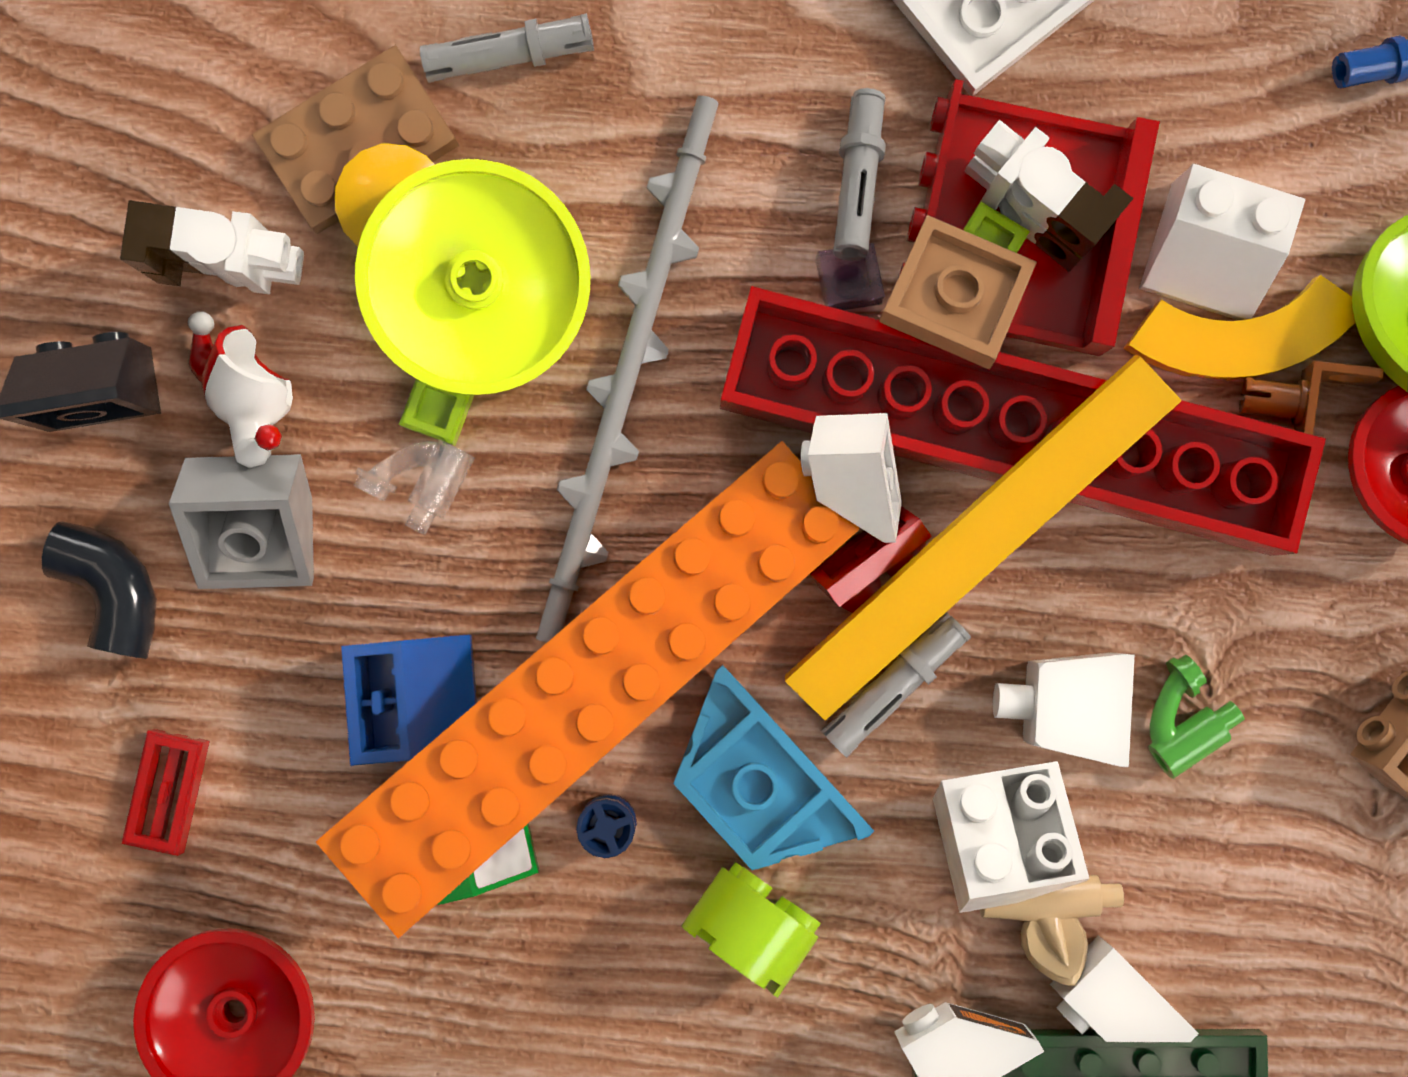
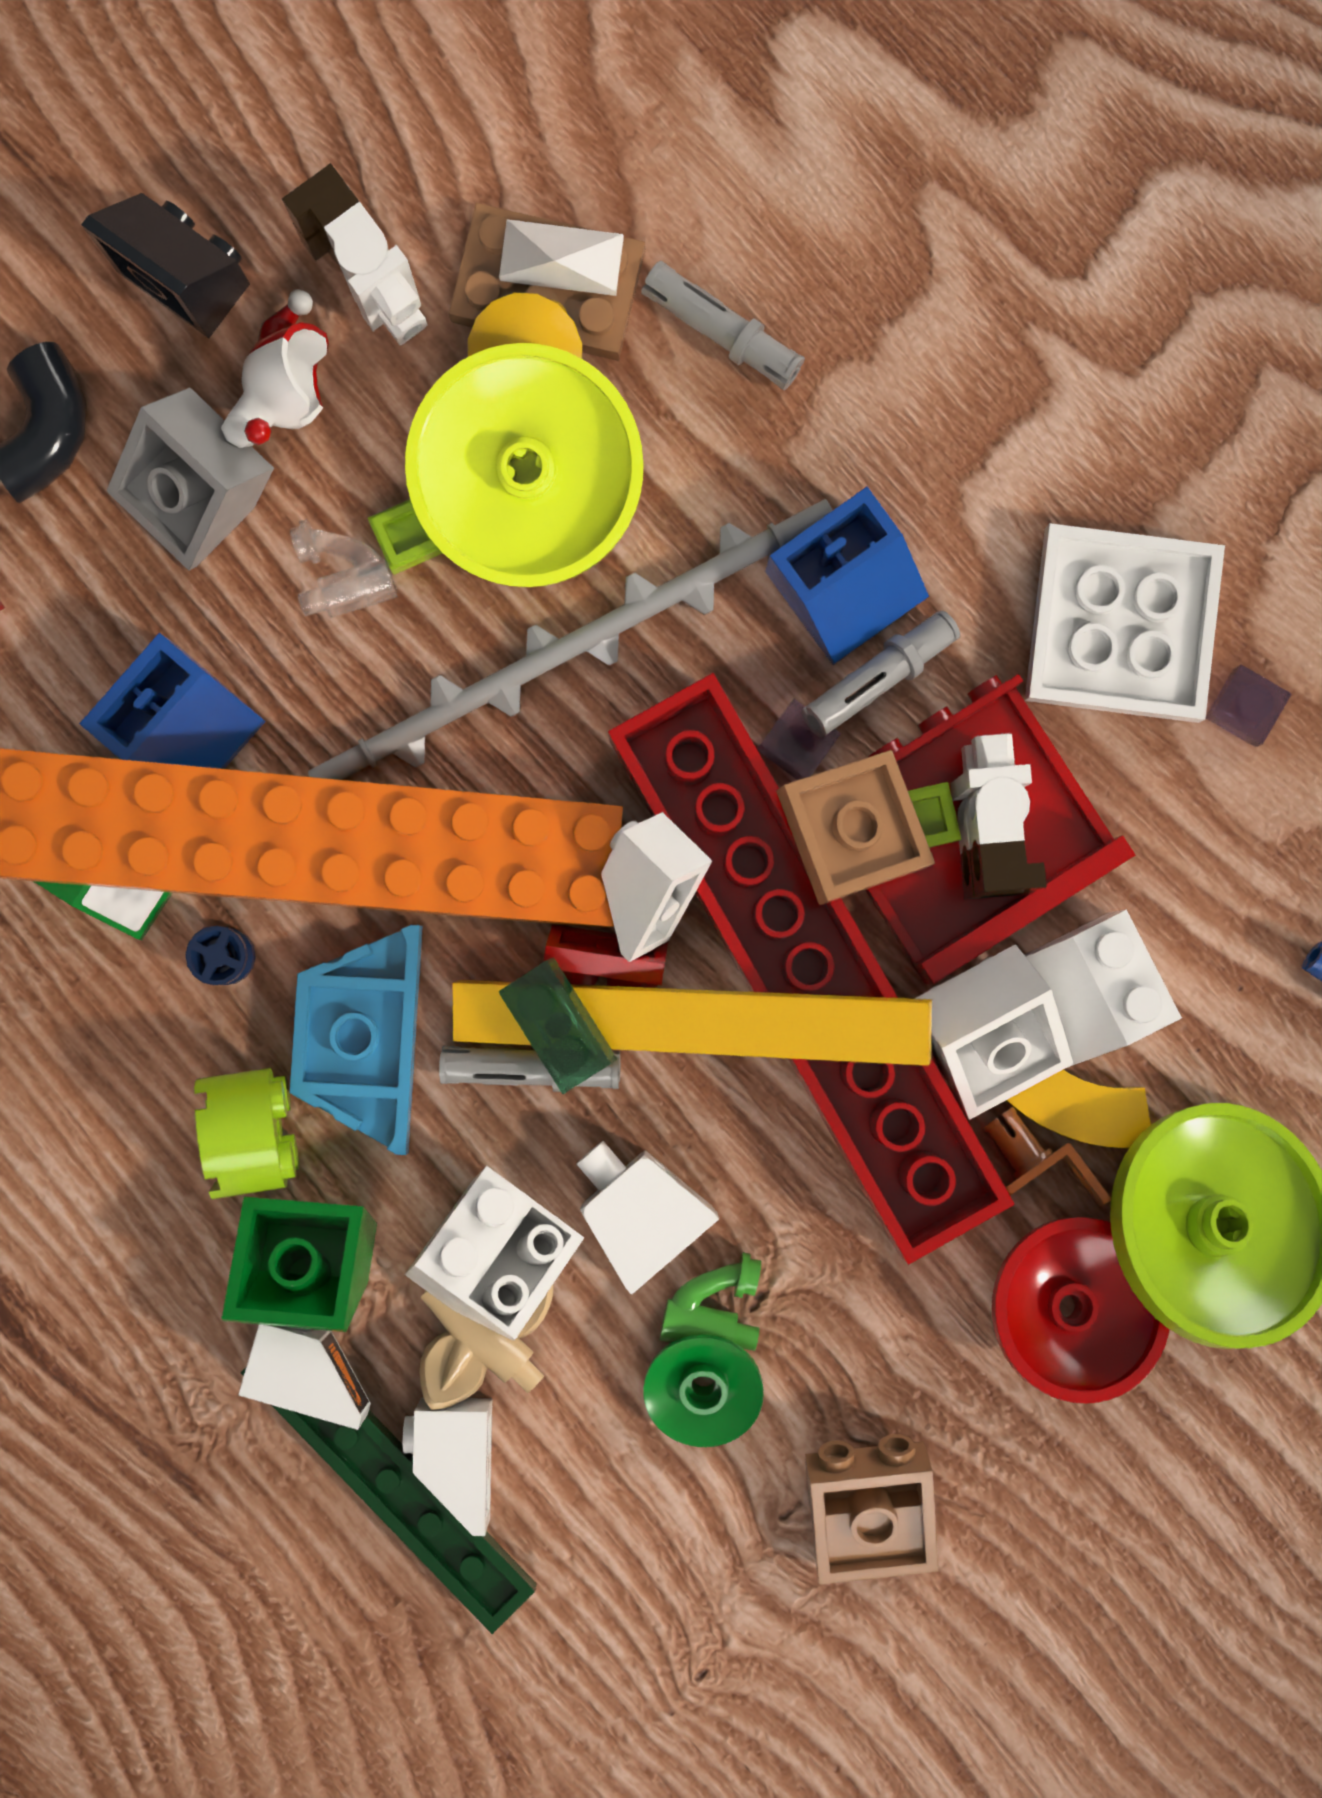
camera: 40 degrees right, 0 degrees up
(350, 110) = (561, 257): none -> white slope
(770, 130) = (848, 575): none -> blue slope
(884, 981) = (299, 1264): none -> green slope
(891, 635) = (557, 1025): none -> clear green plate
(1188, 331) = (996, 1031): none -> white slope
(1256, 792) = (703, 1413): none -> green dish

